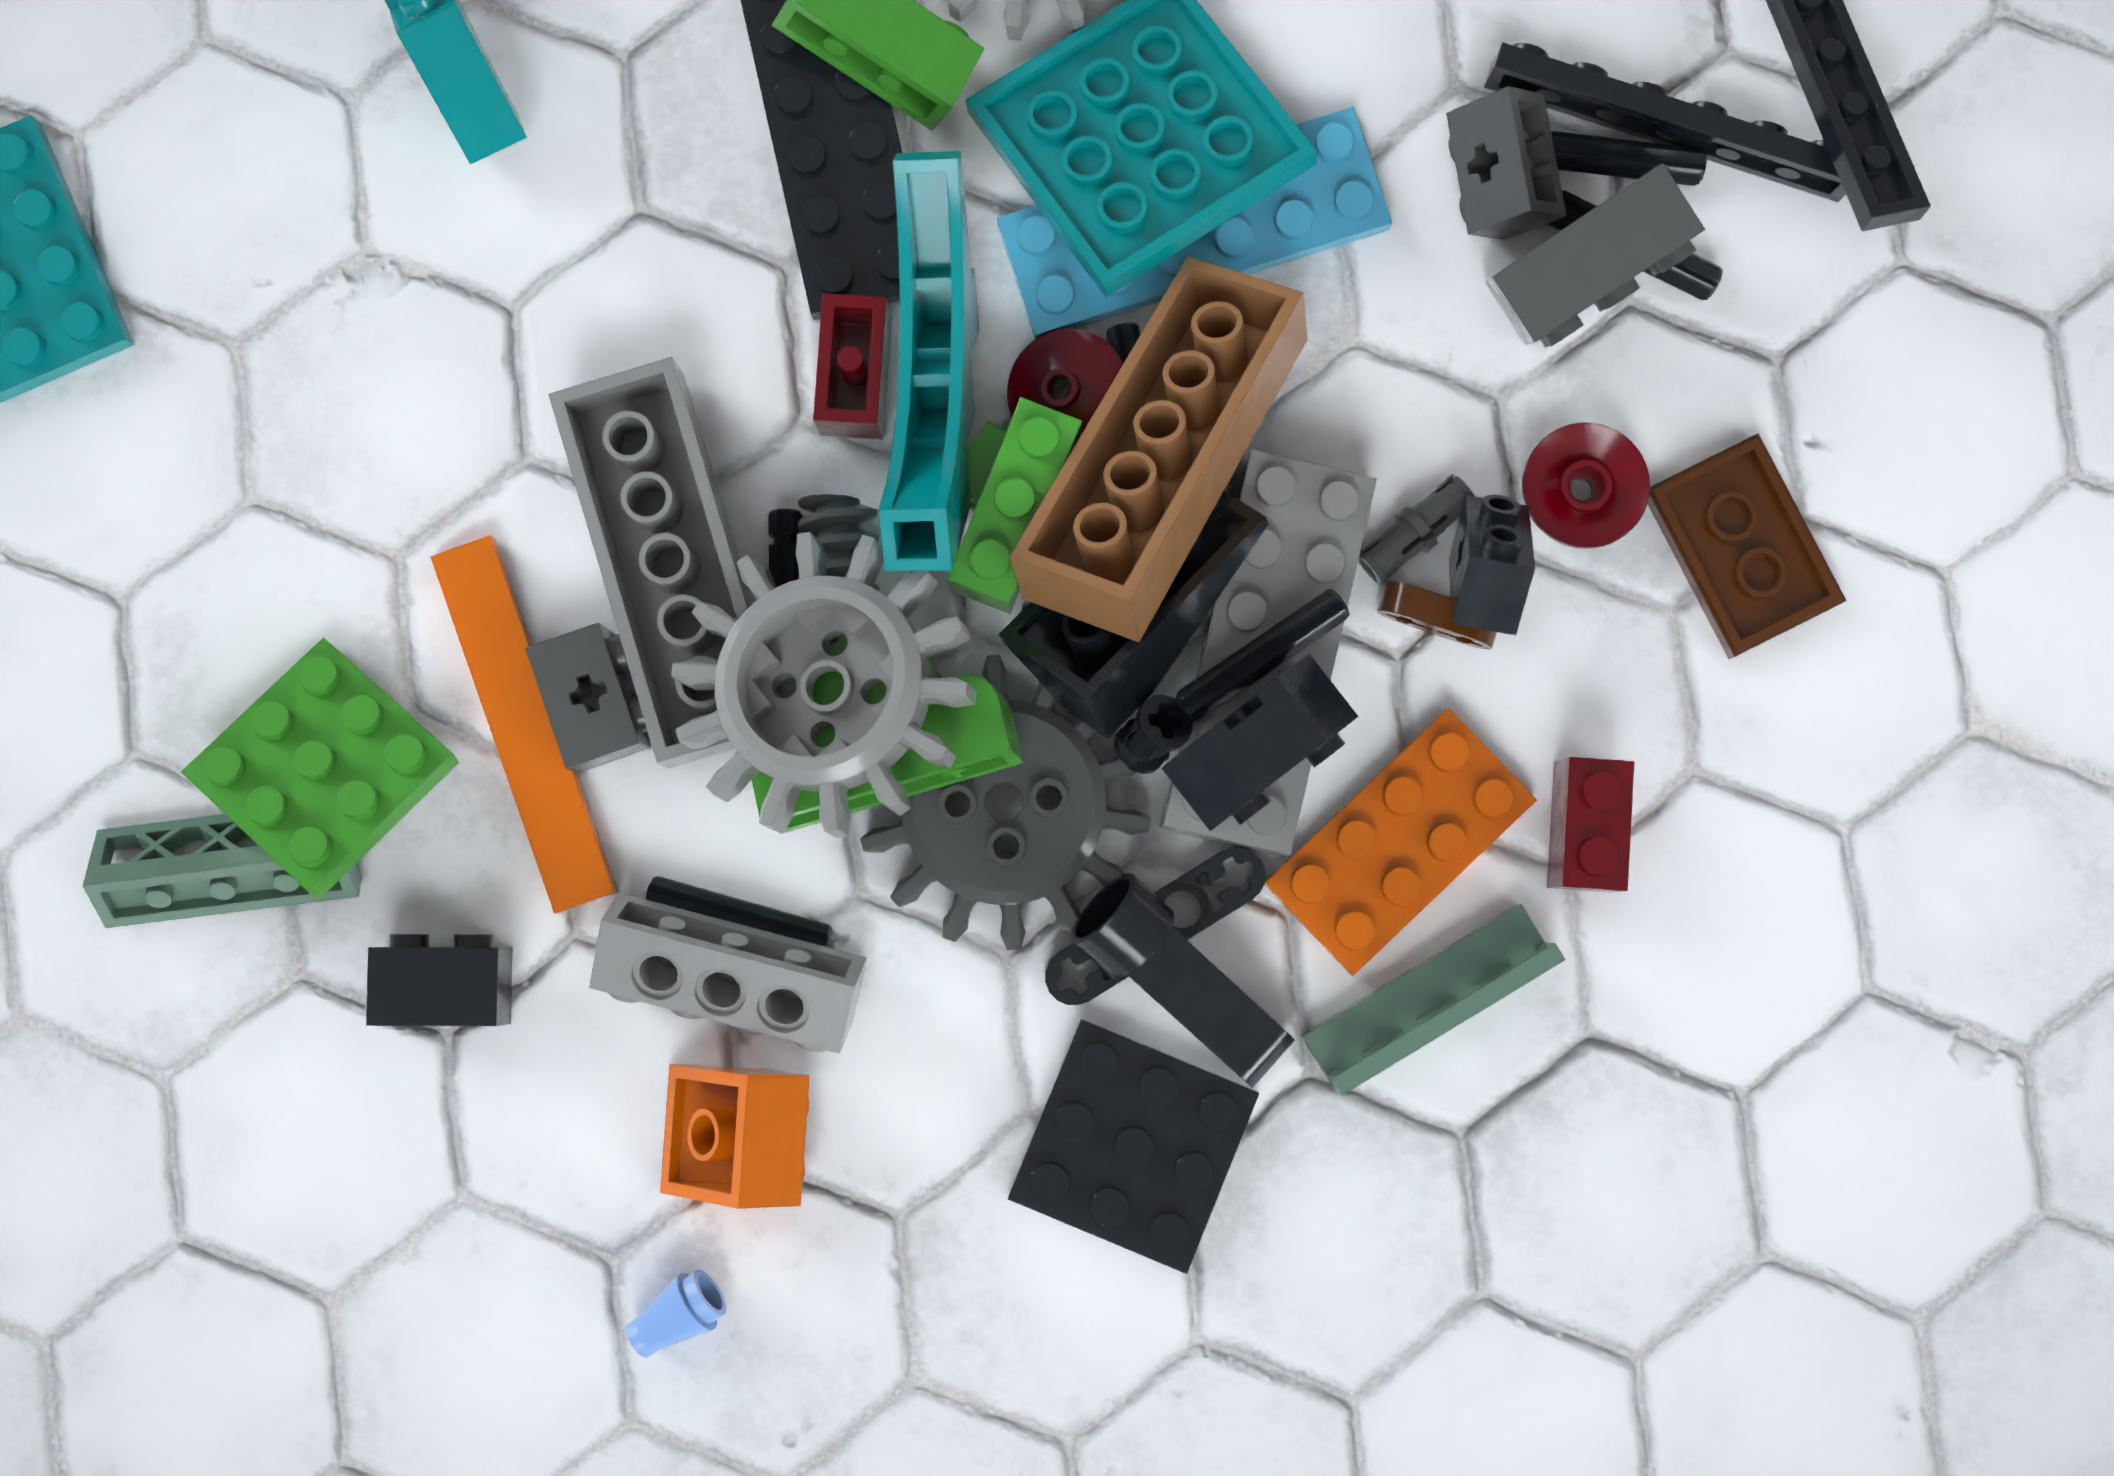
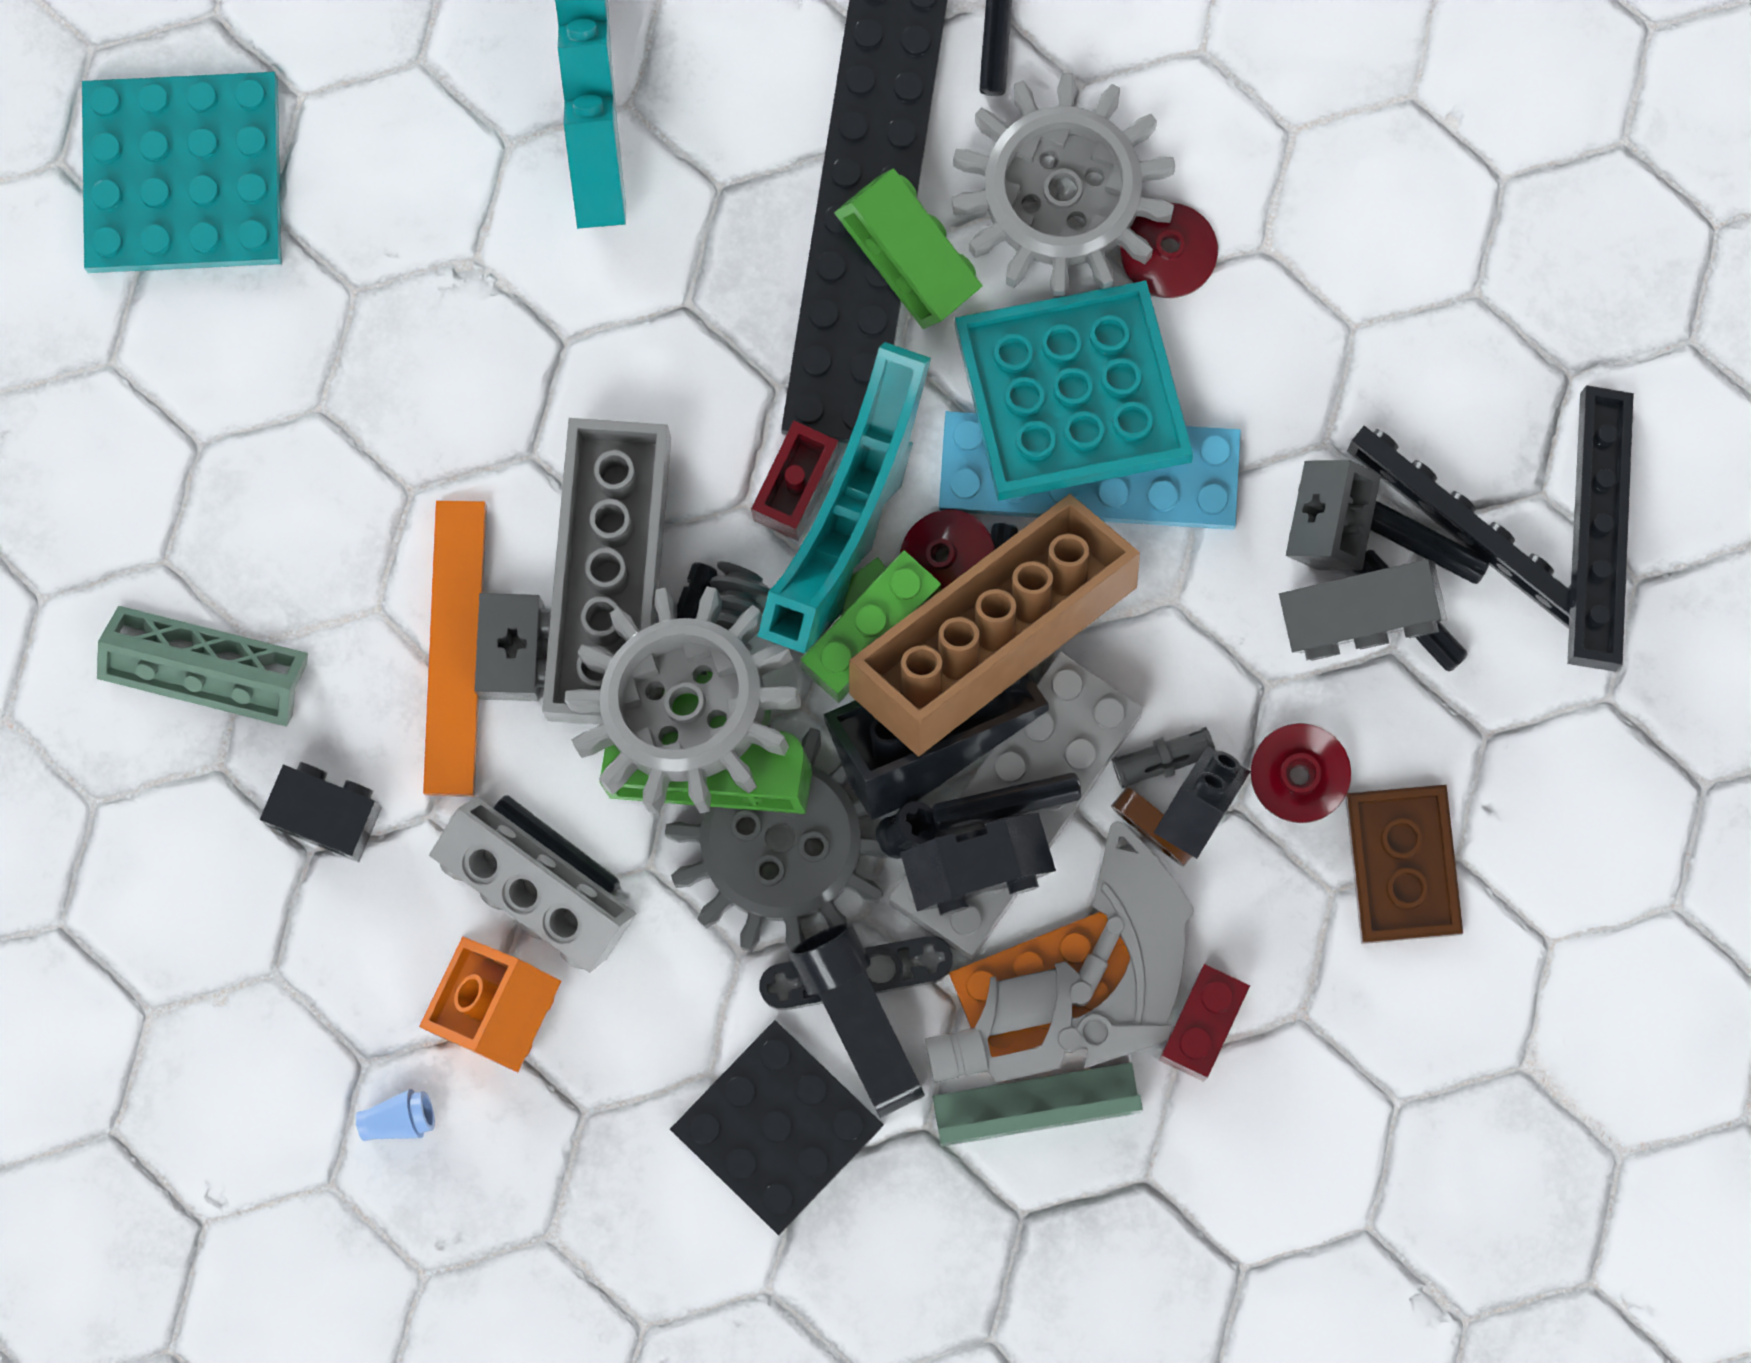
camera: 25 degrees right, 5 degrees down
(320, 768) = (299, 622): bright green plate -> none
(1479, 725) = (1150, 917): none -> light grey piece

